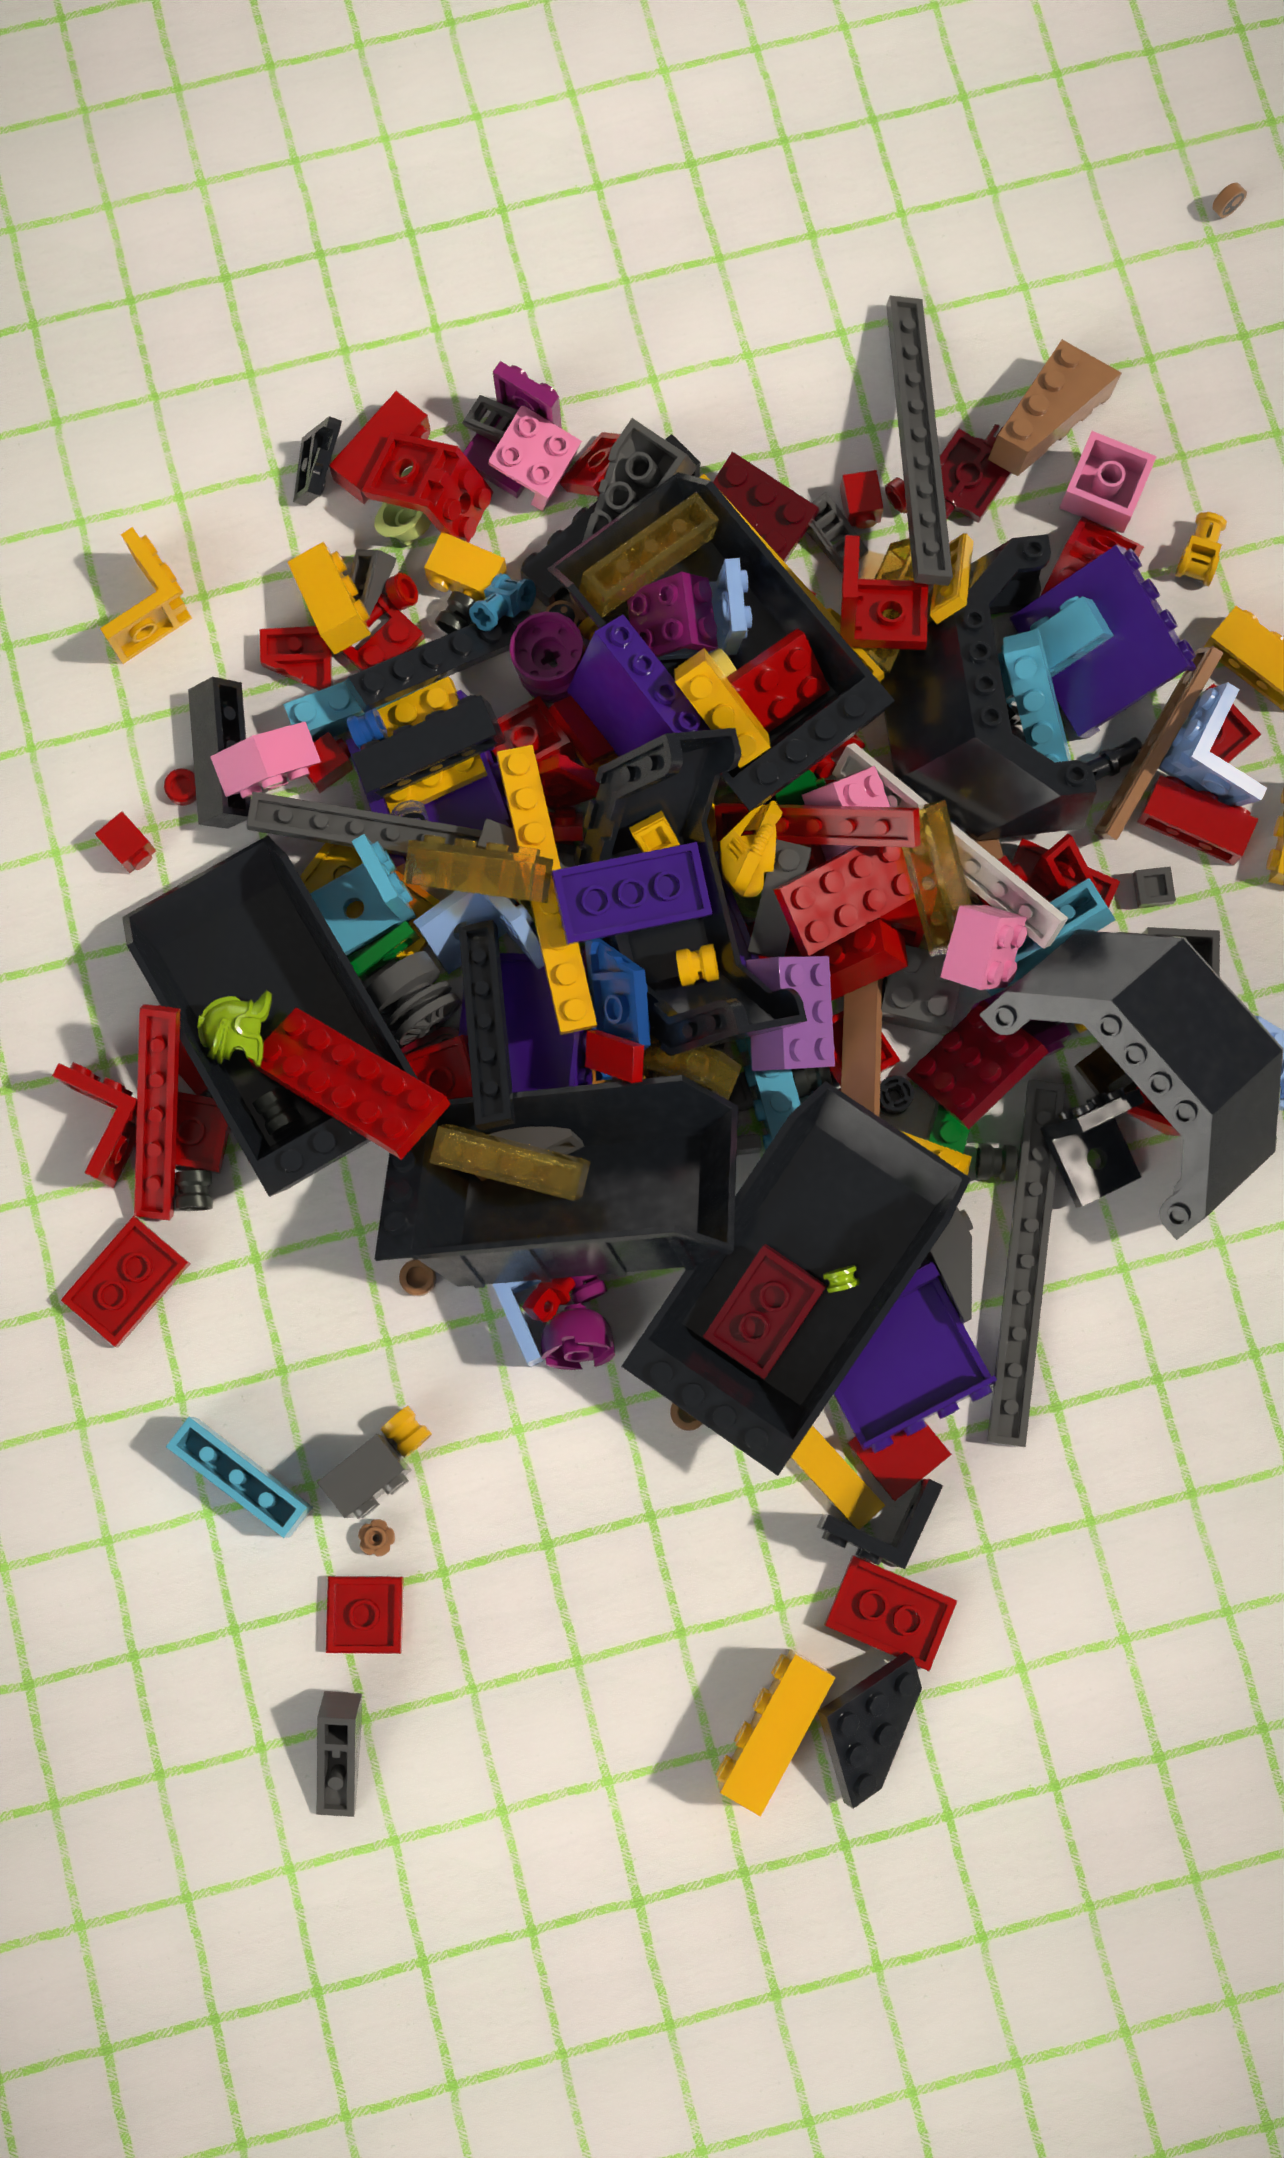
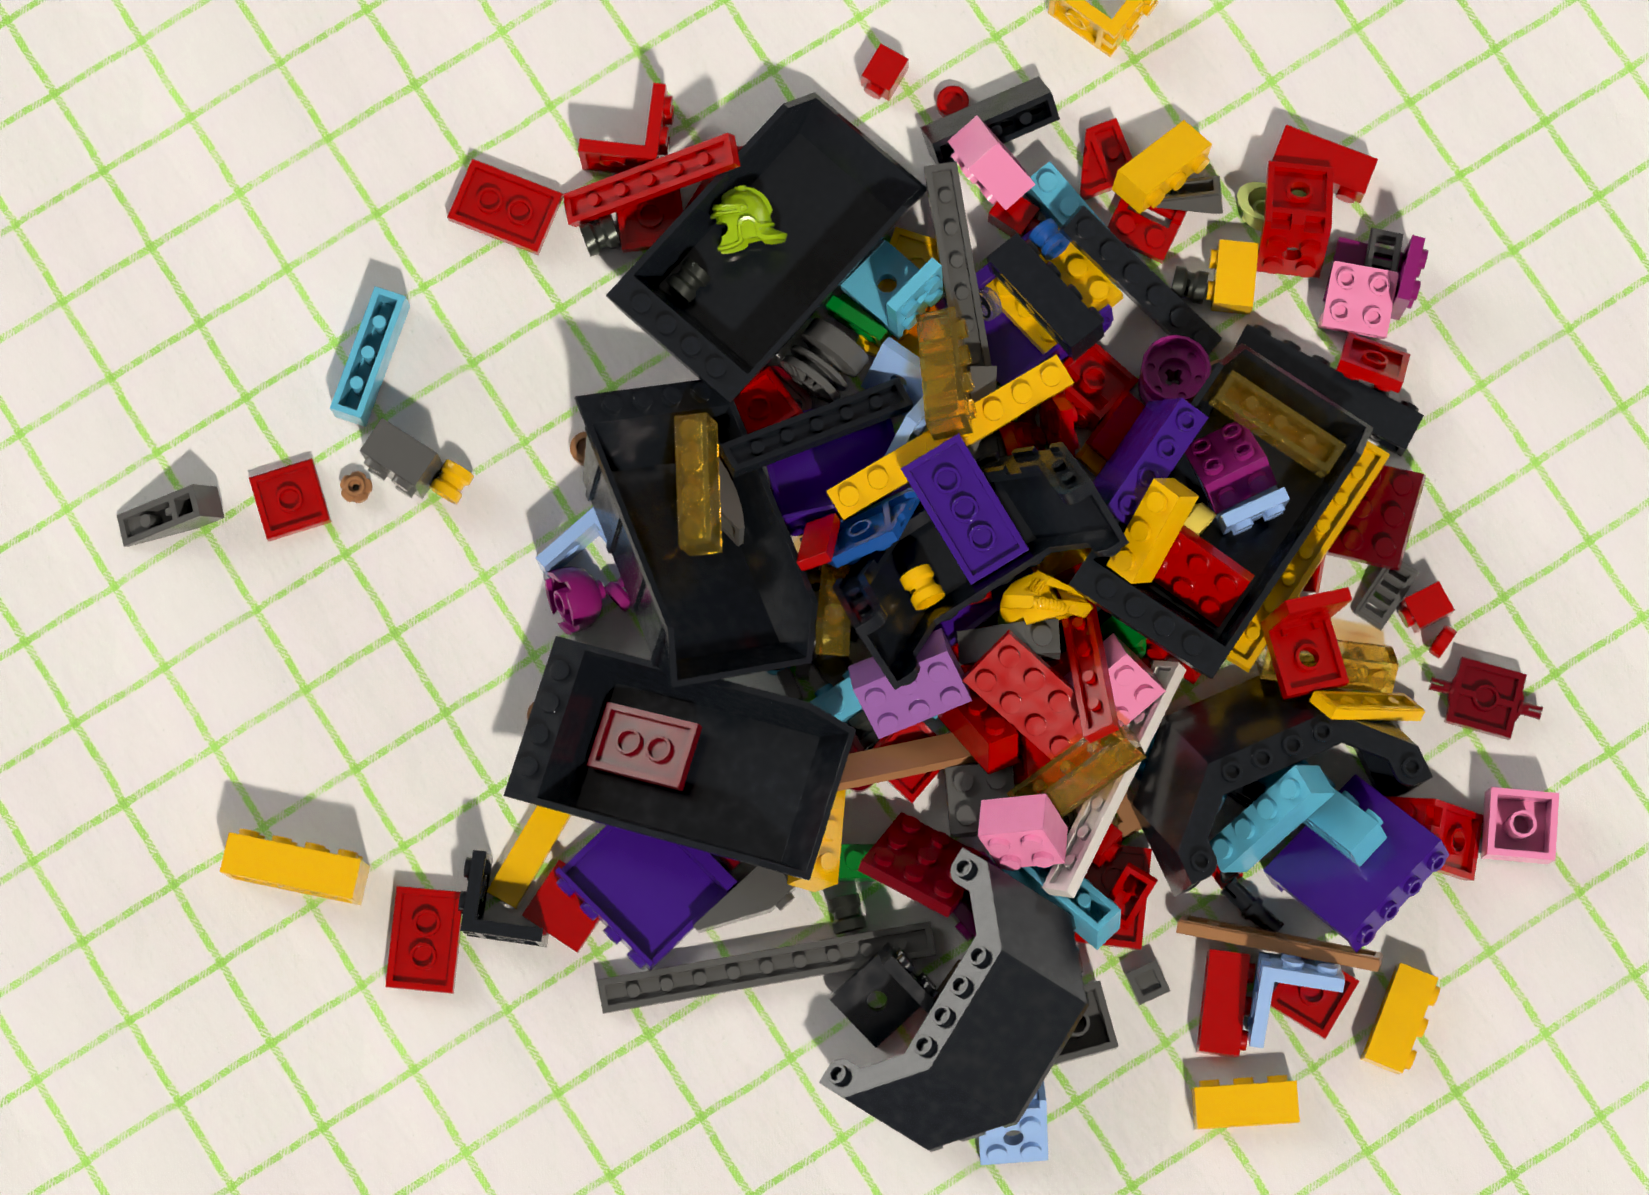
camera: 75 degrees right, 0 degrees up
(314, 460) = (1287, 111): black wing -> none
(350, 1083) = (725, 329): red plate -> none
(401, 591) = (1194, 228): red tile -> none
(502, 599) = (1211, 317): dark azure connector -> none
(546, 1298) = (595, 558): red piece -> none
(636, 467) = (1371, 393): dark grey wedge -> none
(654, 833) = (1024, 512): yellow tile -> none
(841, 1279) = (689, 799): lime bush -> none
(868, 1725) = (323, 946): black plate -> none
(891, 1102) = (877, 811): black wheel -> none
(919, 442) = (1492, 636): dark grey plate -> none
(1057, 400) = (1583, 754): medium nougat wedge -> none
(1202, 552) = (1481, 934): yellow connector -> none

